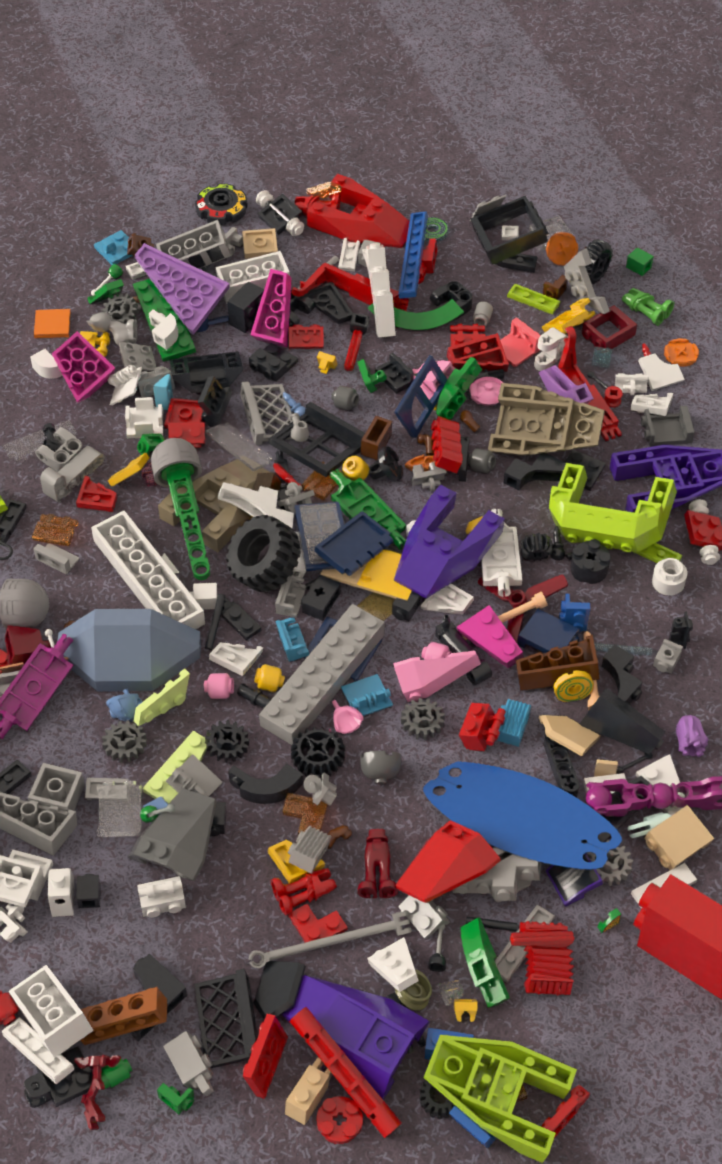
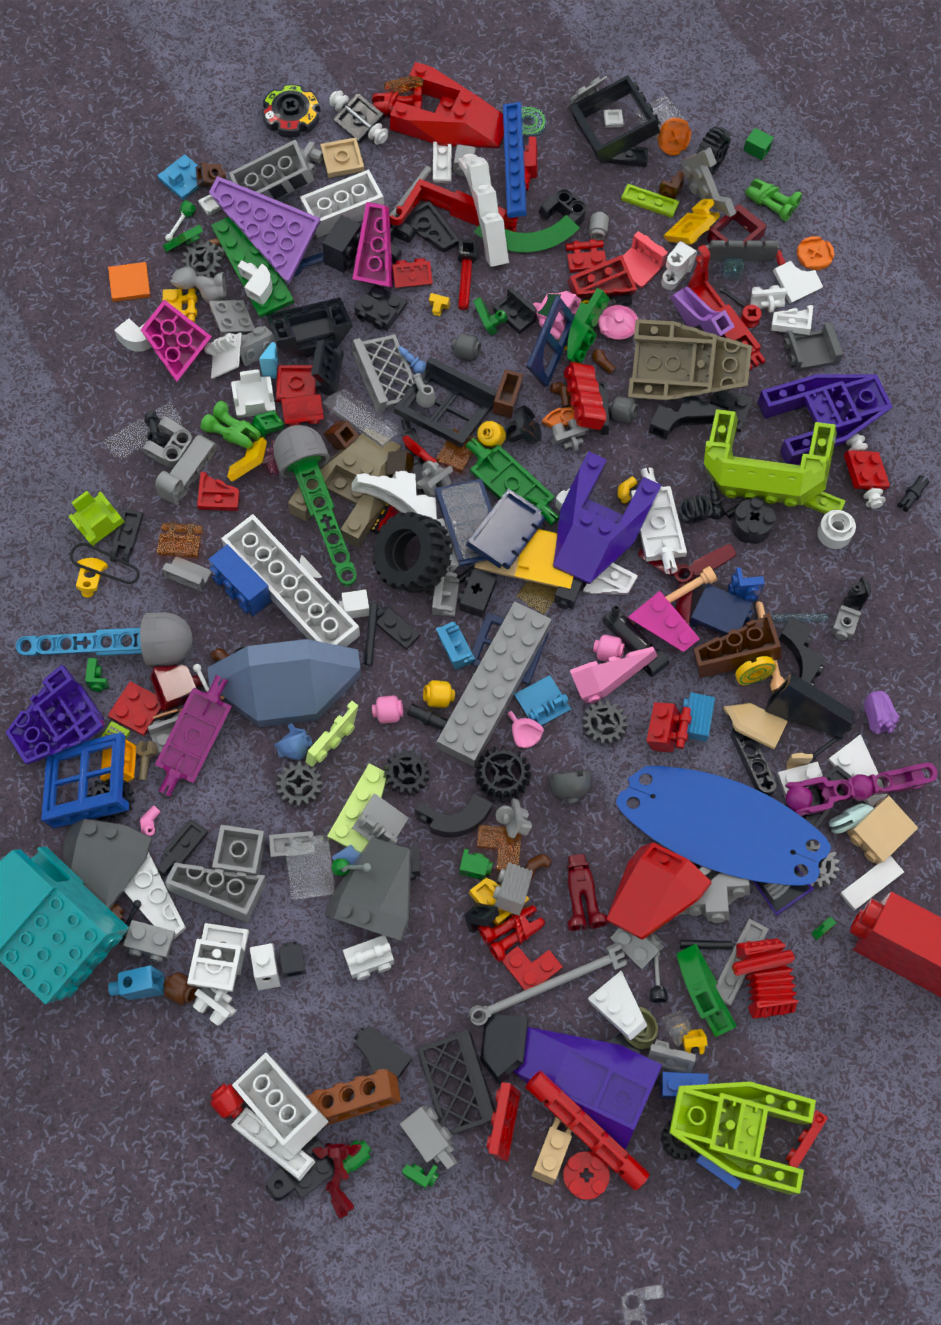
camera: 10 degrees left, 15 degrees up
(101, 564) = (239, 580): none -> blue brick
(117, 443) = (235, 432): none -> bright green piece
(217, 457) = (341, 434): none -> reddish brown brick
(235, 657) = (398, 672): white wing -> none
(273, 870) = (480, 915): none -> black bracket
(277, 828) = (475, 865): none -> green brick
(440, 1018) = (671, 1059): none -> light grey hinge
(619, 342) = (749, 252): none -> dark grey windscreen

